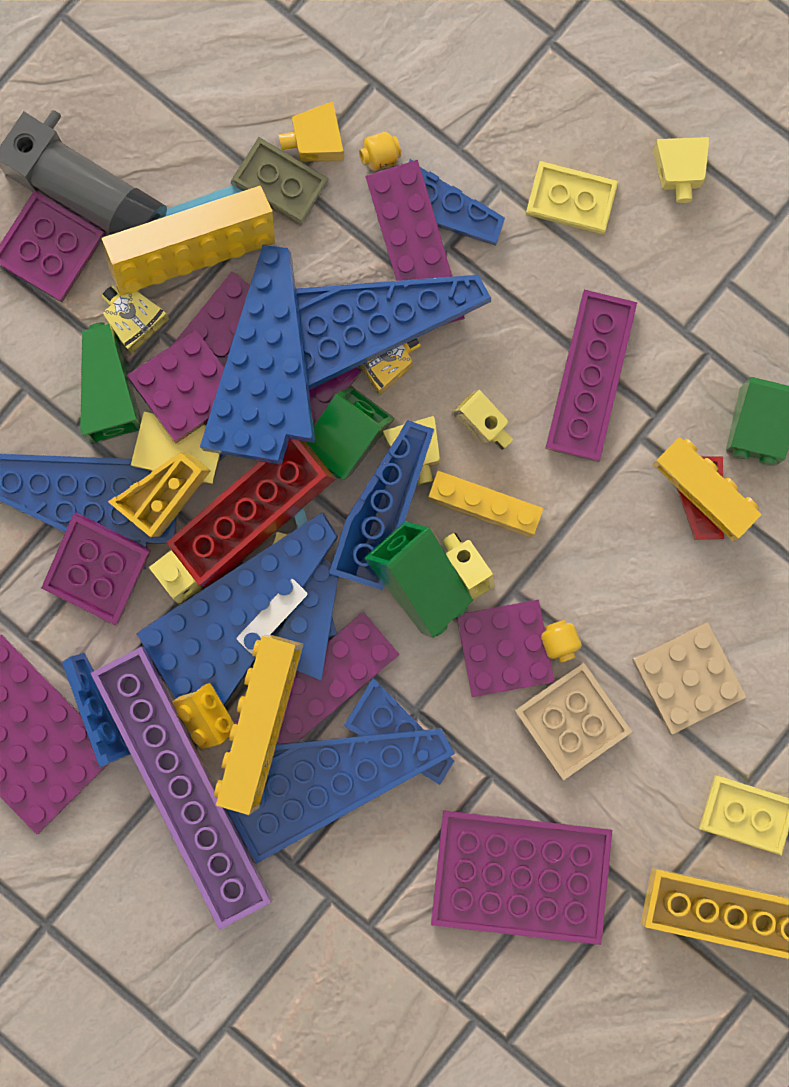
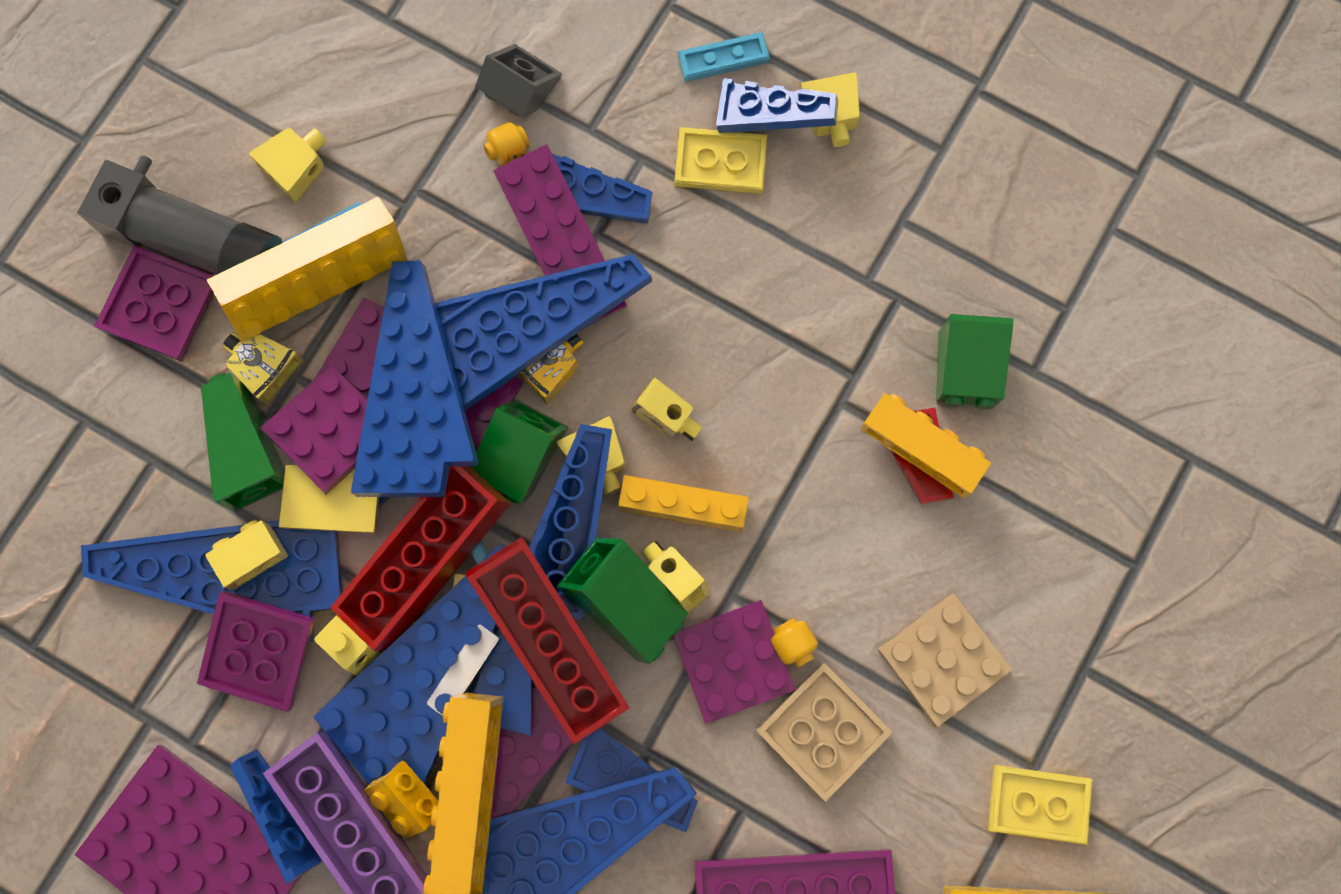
camera: 10 degrees left, 5 degrees down
(98, 484) = (246, 554): none -> light yellow brick
(162, 494) = (317, 553): yellow wedge -> none
(184, 135) = (291, 160): none -> light yellow torso
(286, 182) = (407, 192): olive tile -> none
(315, 135) = (433, 138): yellow torso -> none
(350, 601) = (547, 640): none -> red brick
(399, 92) = (517, 80): none -> dark grey slope
(591, 100) = (723, 57): none -> medium azure tile
(591, 375) = (775, 345): magenta plate -> none
(618, 157) = (763, 108): none -> wing

